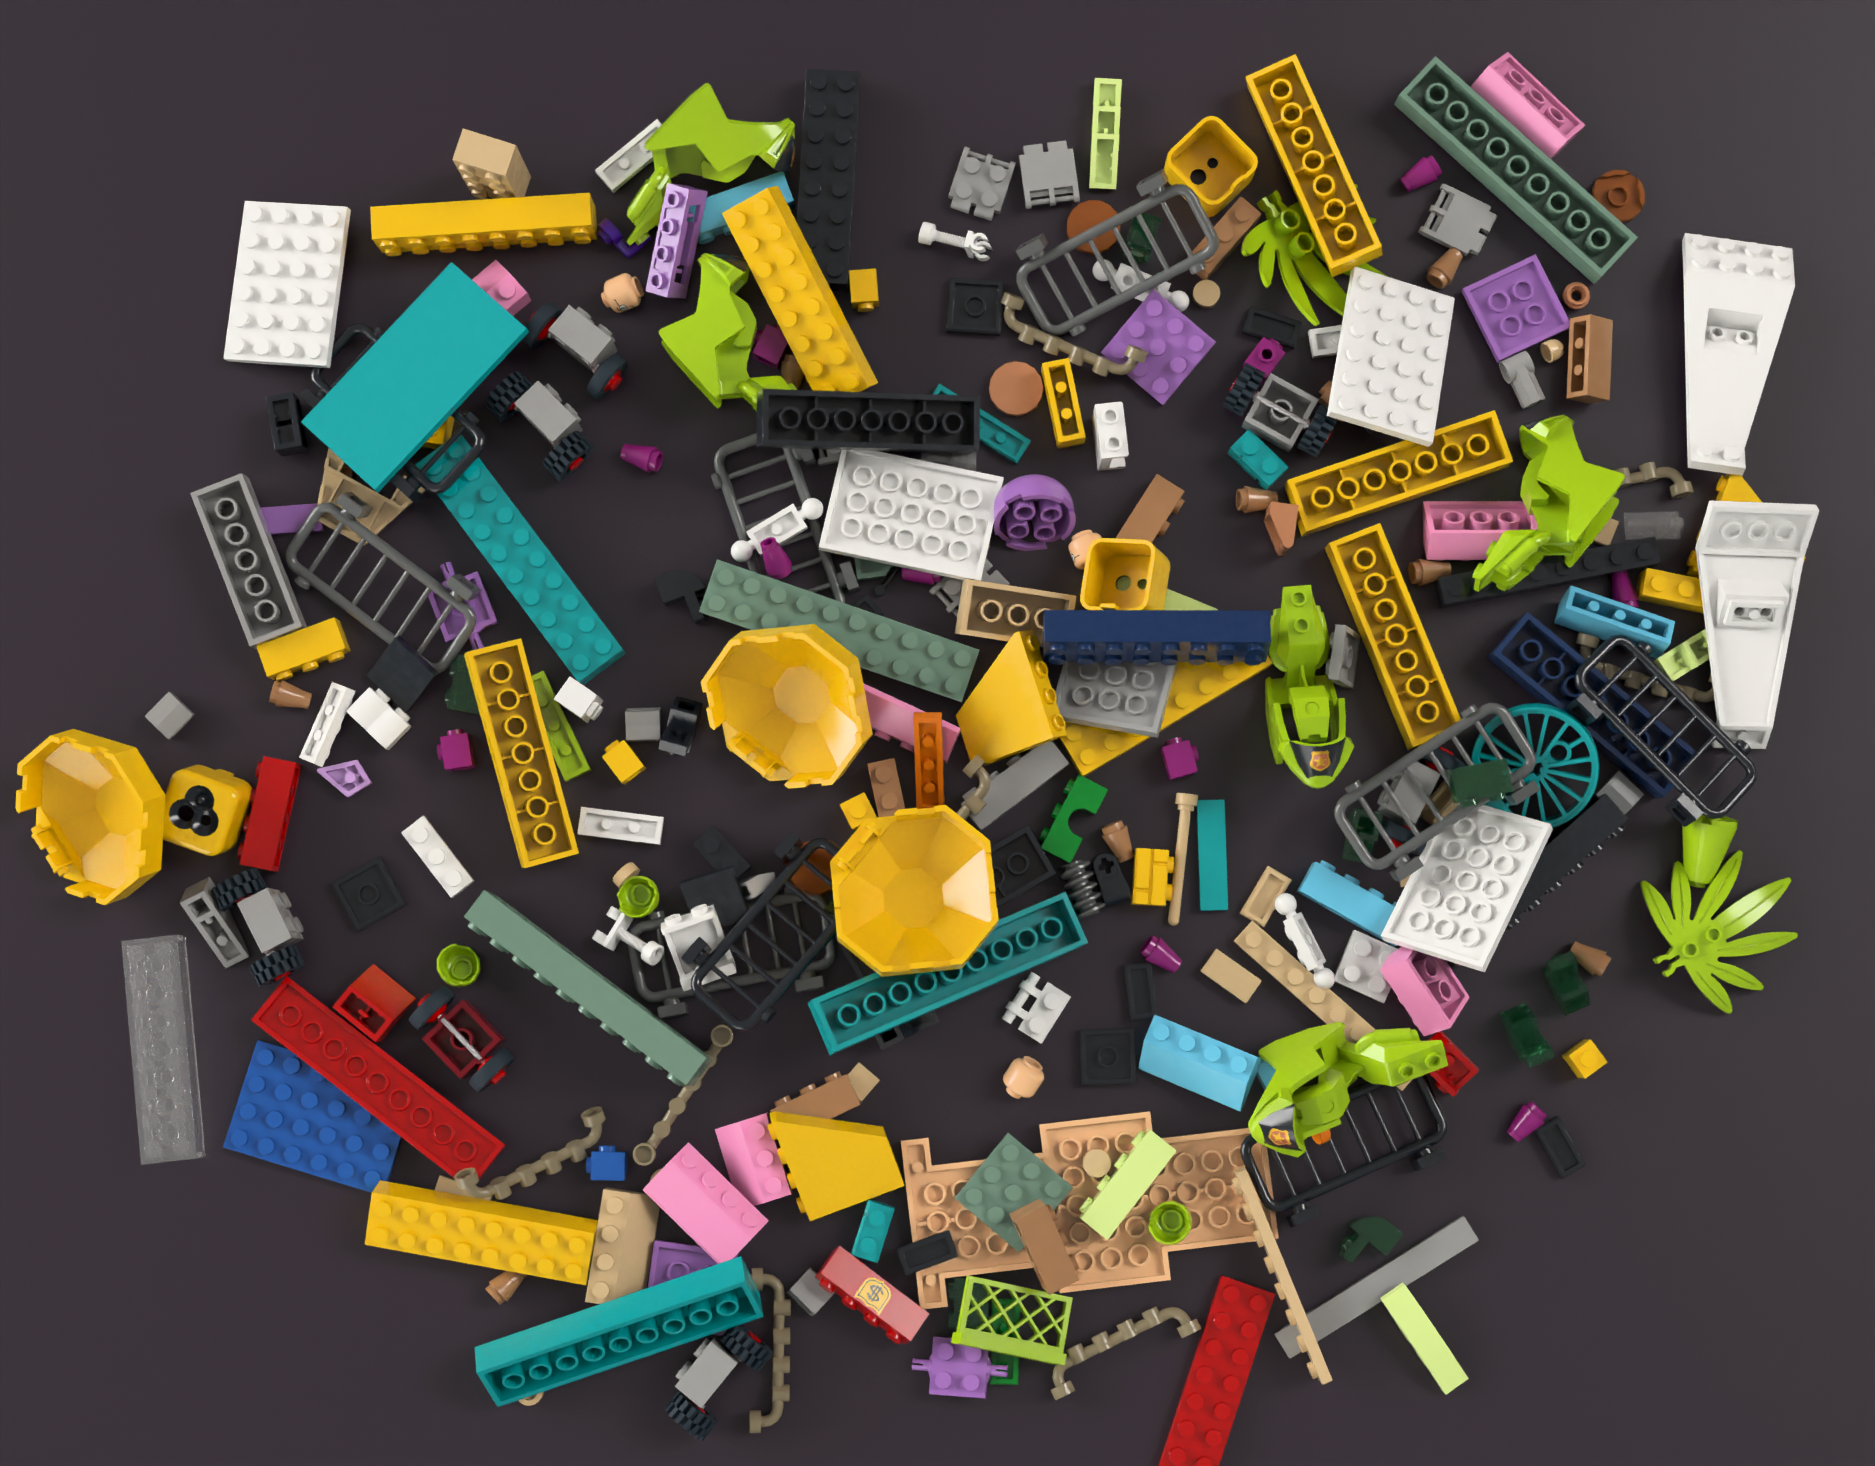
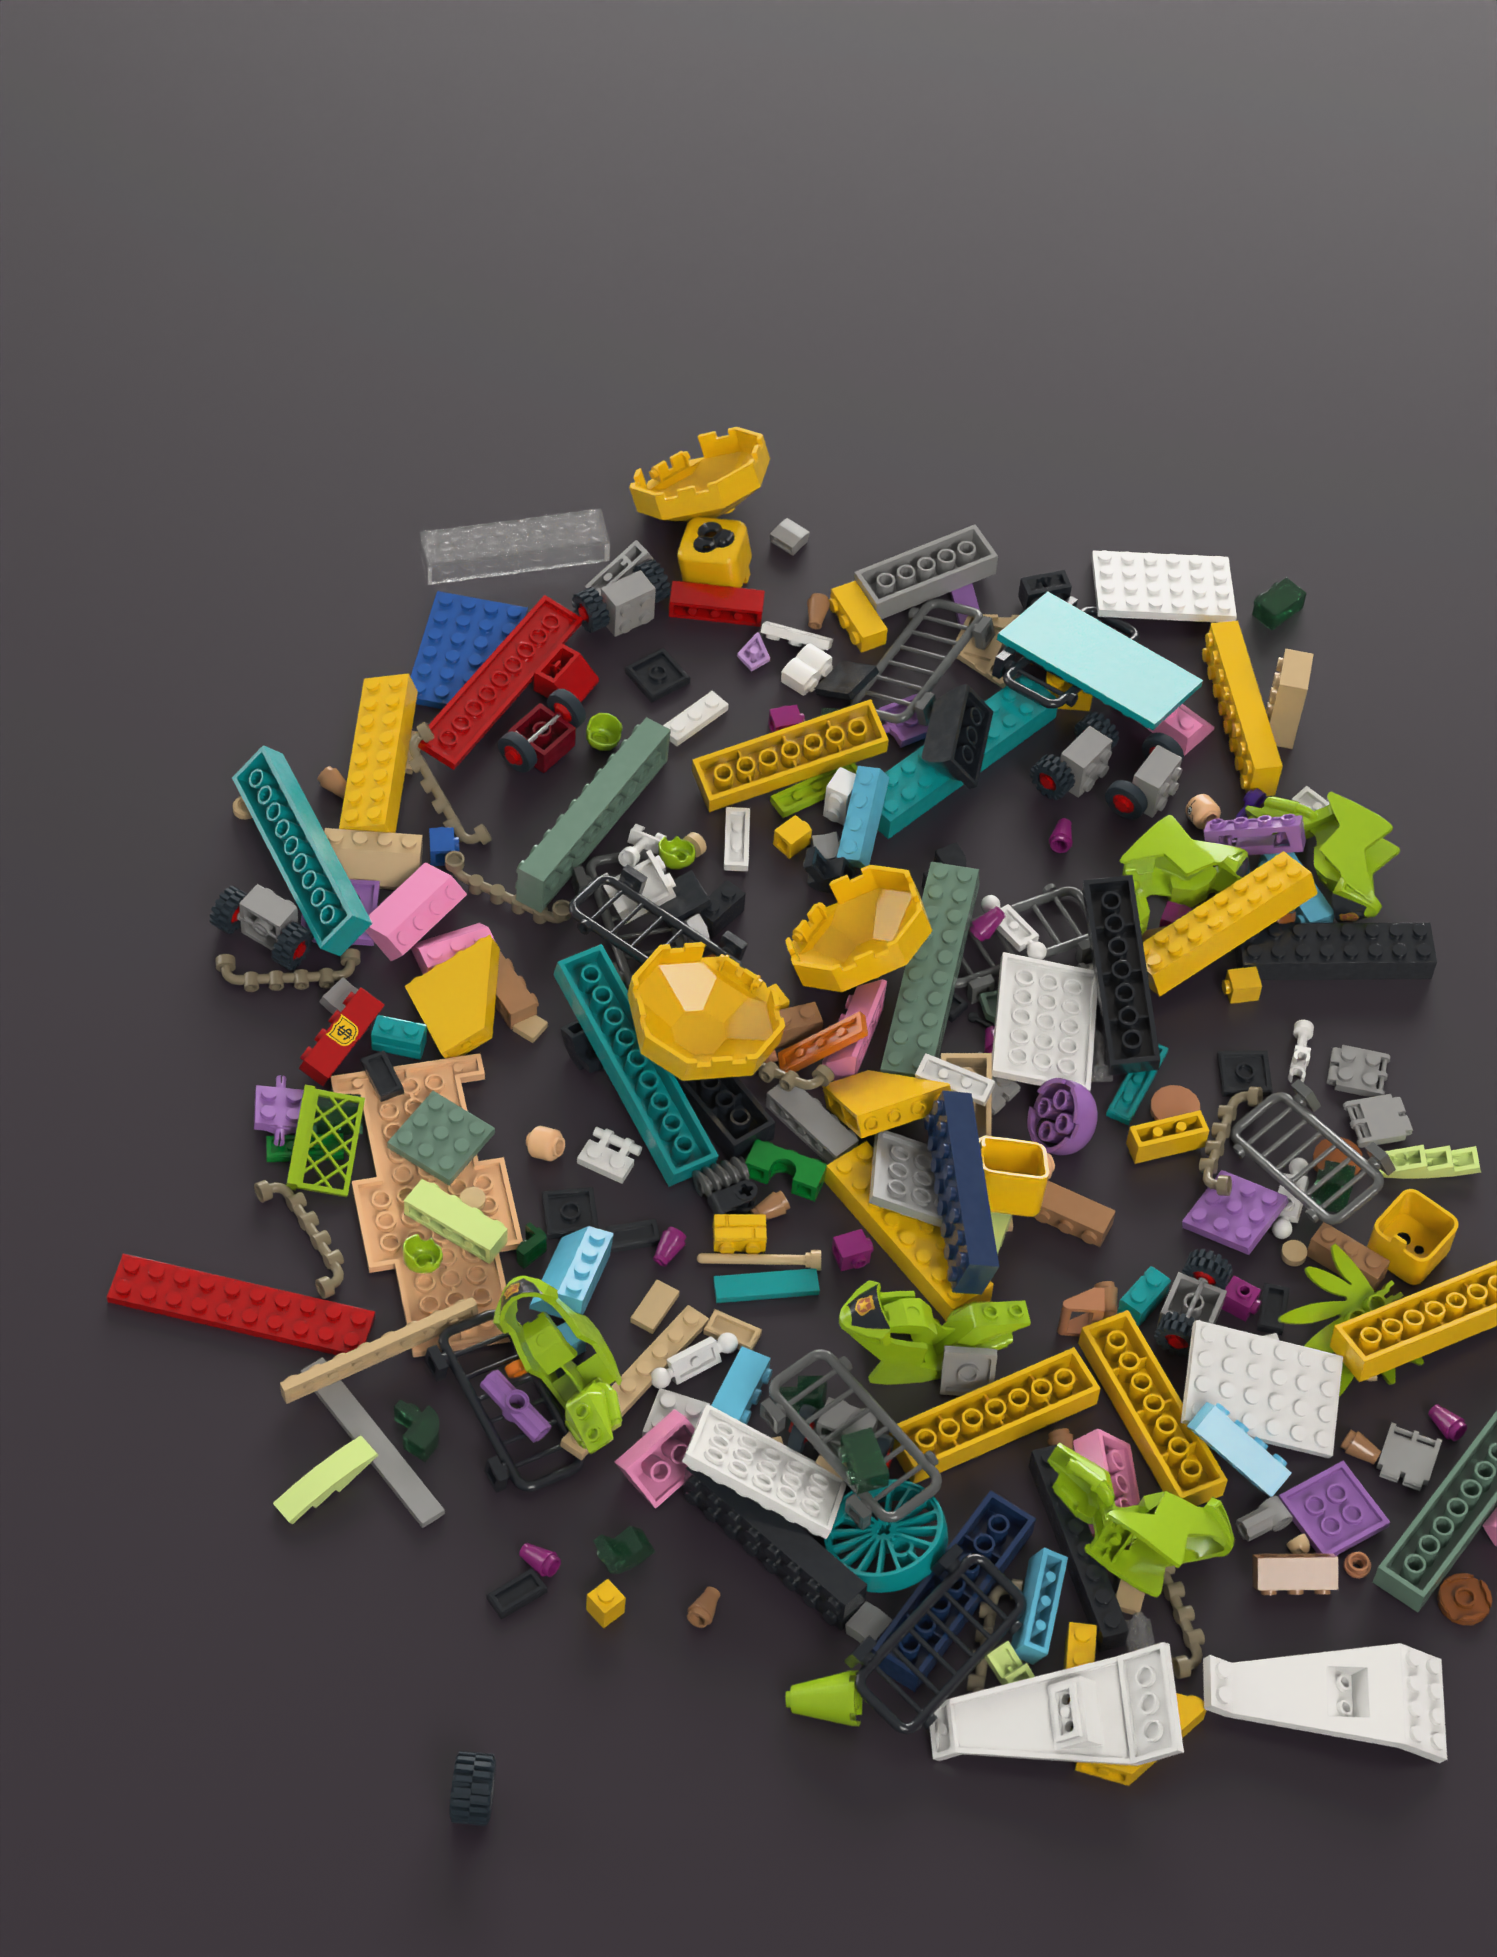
camera: 80 degrees right, 30 degrees down
(322, 153) = (1278, 603): none -> clear green brick
(525, 558) = (958, 735): none -> black windscreen
(619, 680) = (863, 816): none -> medium azure brick
(1000, 623) = (958, 1078): none -> white plate
(1045, 1246) = (395, 1153): medium nougat brick -> none
(1110, 436) = (1141, 1169): white panel -> none
(1156, 1104) = (532, 1246): none -> dark green bracket
(1350, 1146) = (526, 1417): none -> medium lavender piece
(1459, 1068) = (588, 1483): red bracket -> none
(1463, 392) = (1240, 1449): none -> medium azure brick
(1565, 983) = (679, 1584): clear green brick -> none
(1623, 590) = (1067, 1615): magenta cone -> none
(1703, 940) = (734, 1692): lime plant -> none
(1792, 1209) = (472, 1788): none -> black wheel

